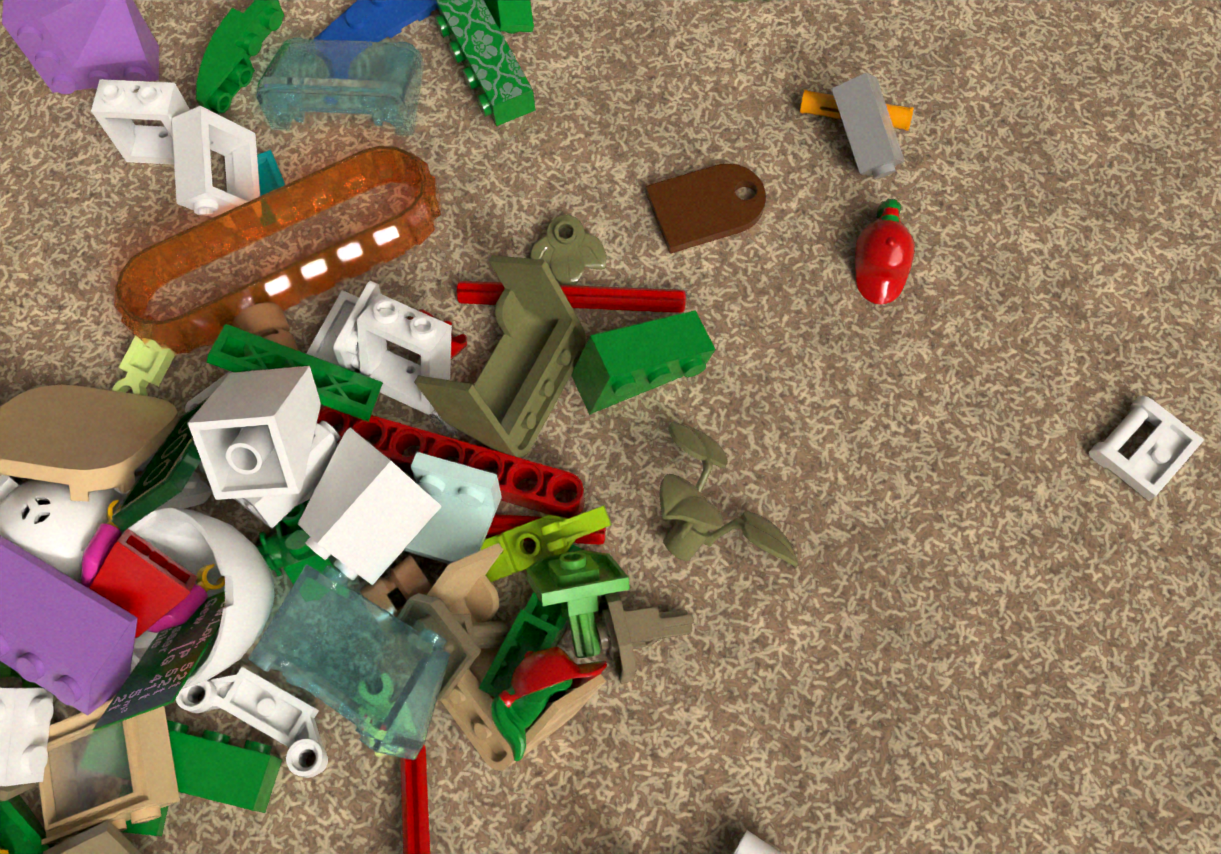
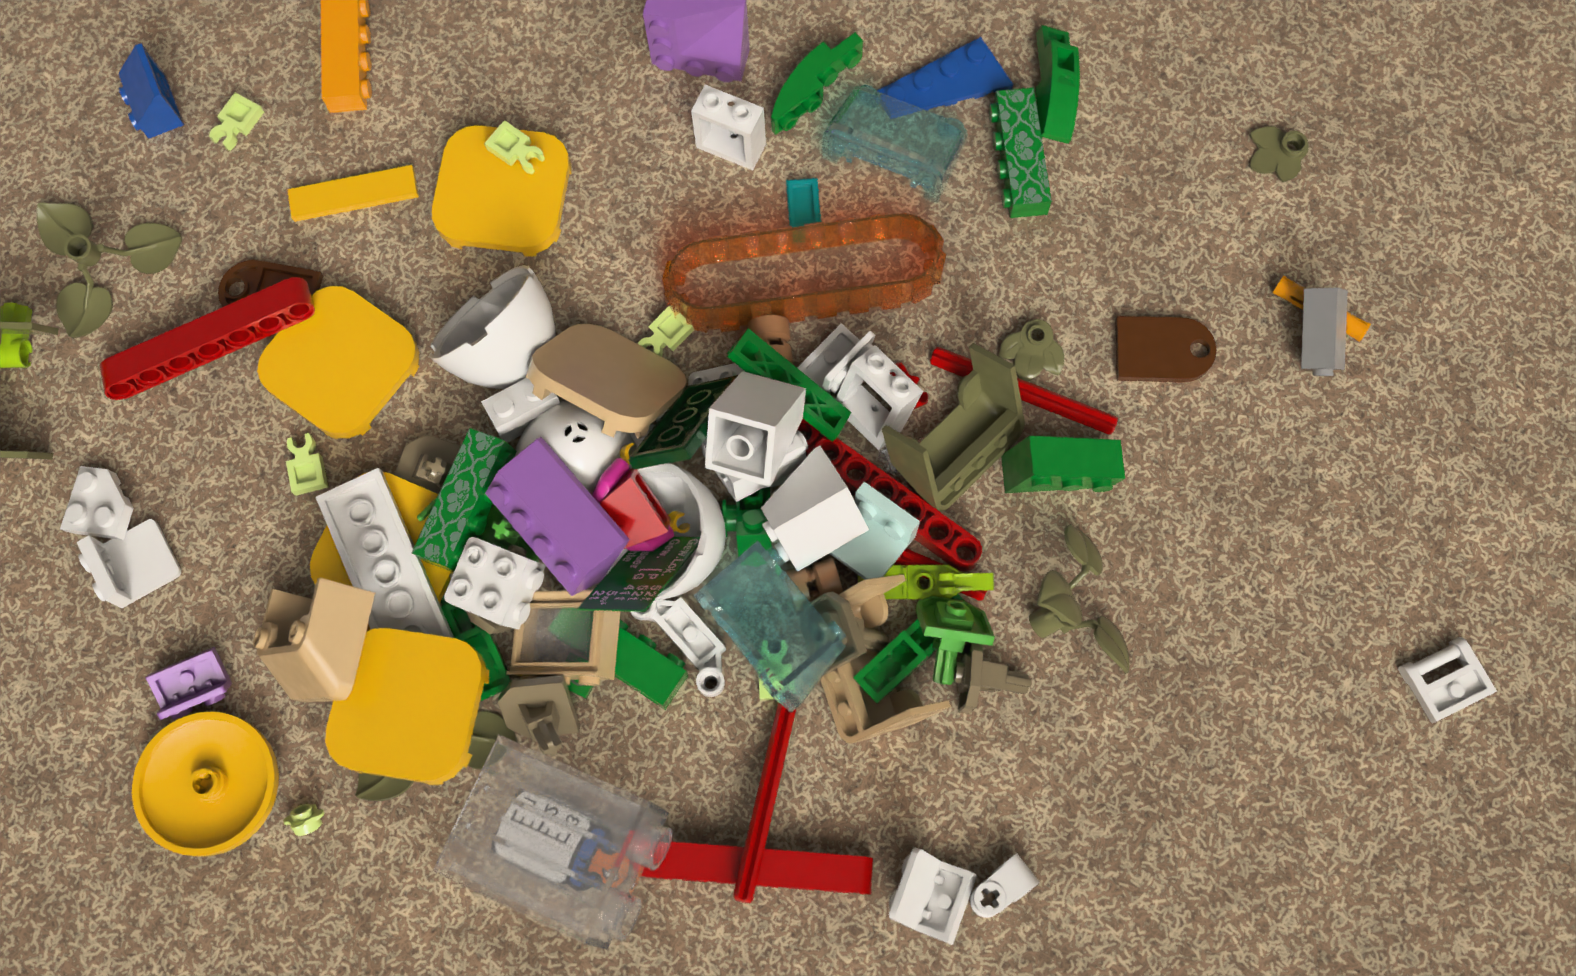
camera: 20 degrees right, 5 degrees up
(193, 138) = (763, 161): white window -> none
(535, 682) = (897, 690): hair -> none
(884, 255) = (1294, 445): red hair -> none

